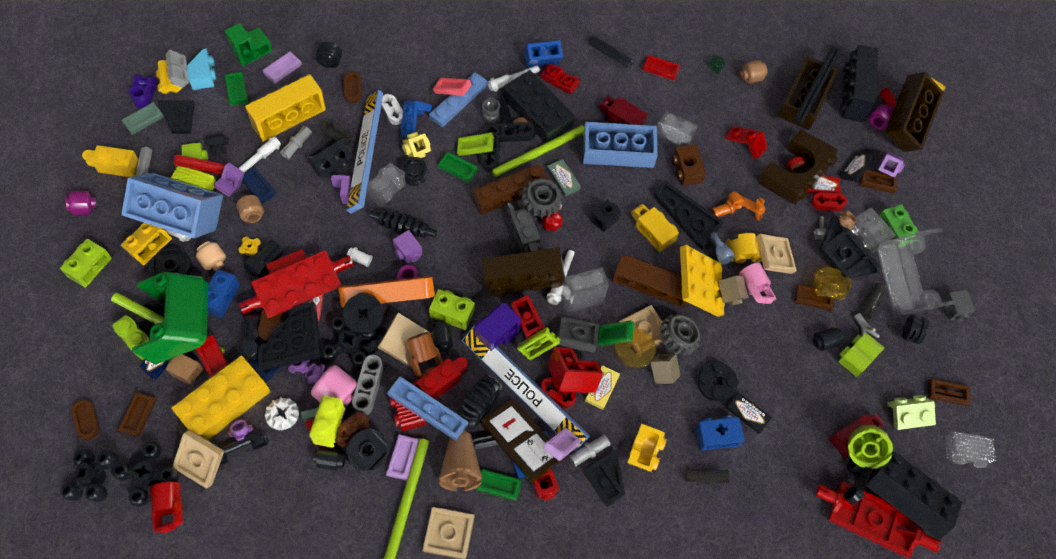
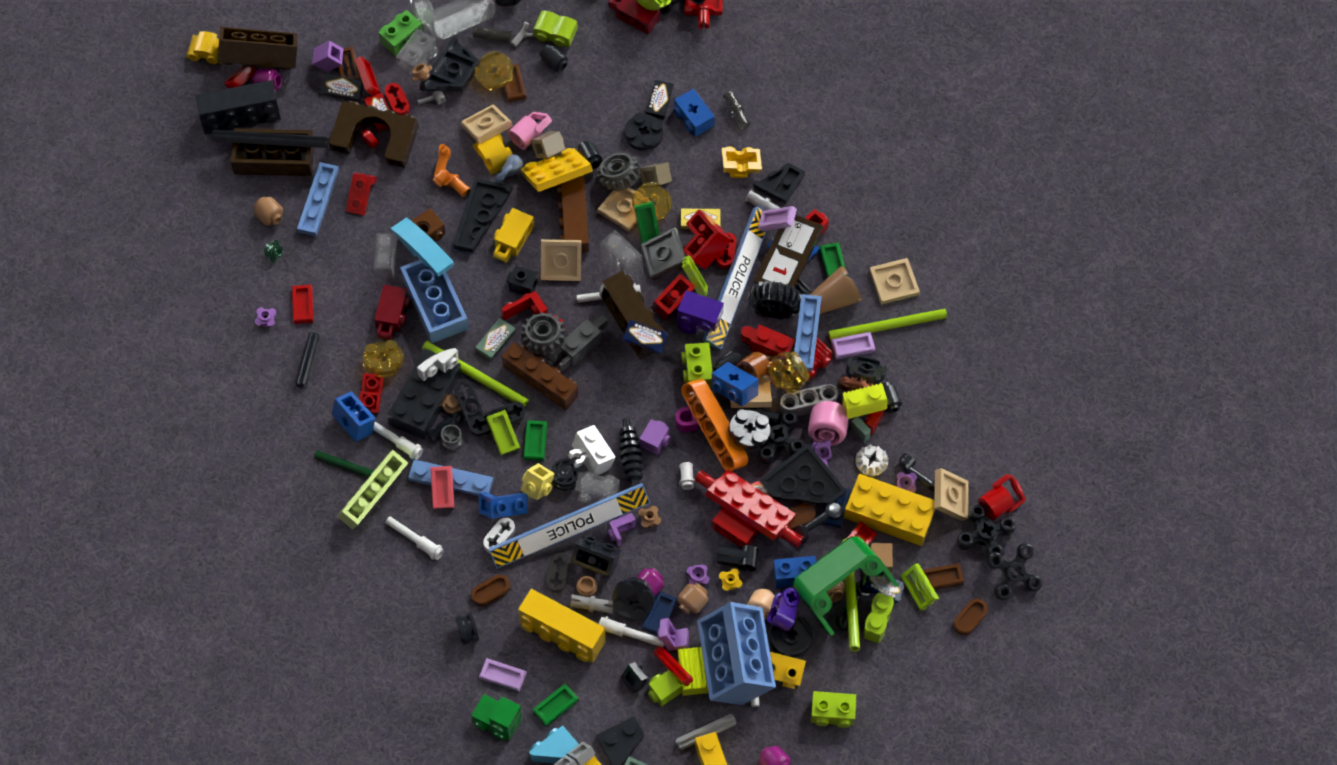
camera: 110 degrees left, 0 degrees up
(138, 388) = (922, 584): none -> lime tile
(187, 260) = (784, 609): none -> dark purple piece
(269, 220) = (698, 569): none -> medium lavender plate
(276, 165) = (630, 609): none -> black plate
(284, 184) = (654, 579): none -> magenta head
(312, 145) = (586, 586): none -> medium nougat plate
(340, 218) = (649, 522): none -> medium nougat plate
(398, 368) = (795, 365): none -> clear yellow plate
(403, 328) = (735, 384): none -> blue brick
(405, 64) = (435, 551): none -> white pin
(420, 194) = (592, 451): none -> white brick
(475, 42) = (372, 489): none -> yellowish green brick
(490, 261) = (645, 336): none -> tile
(510, 41) = (343, 463): none -> dark green bar
(550, 109) = (443, 360): none -> white slope
(579, 216) = (527, 300): none -> red bracket
(588, 86) = (381, 349): none -> clear yellow plate
(610, 248) = (561, 260): none -> tan tile
(660, 43) = (265, 322): none -> medium lavender plate
(667, 145) = (422, 246): none -> medium azure slope
(709, 320) = (590, 153): none -> black brick
(752, 110) = (318, 199): none -> medium blue plate
(860, 186) = (367, 76): none -> red tile

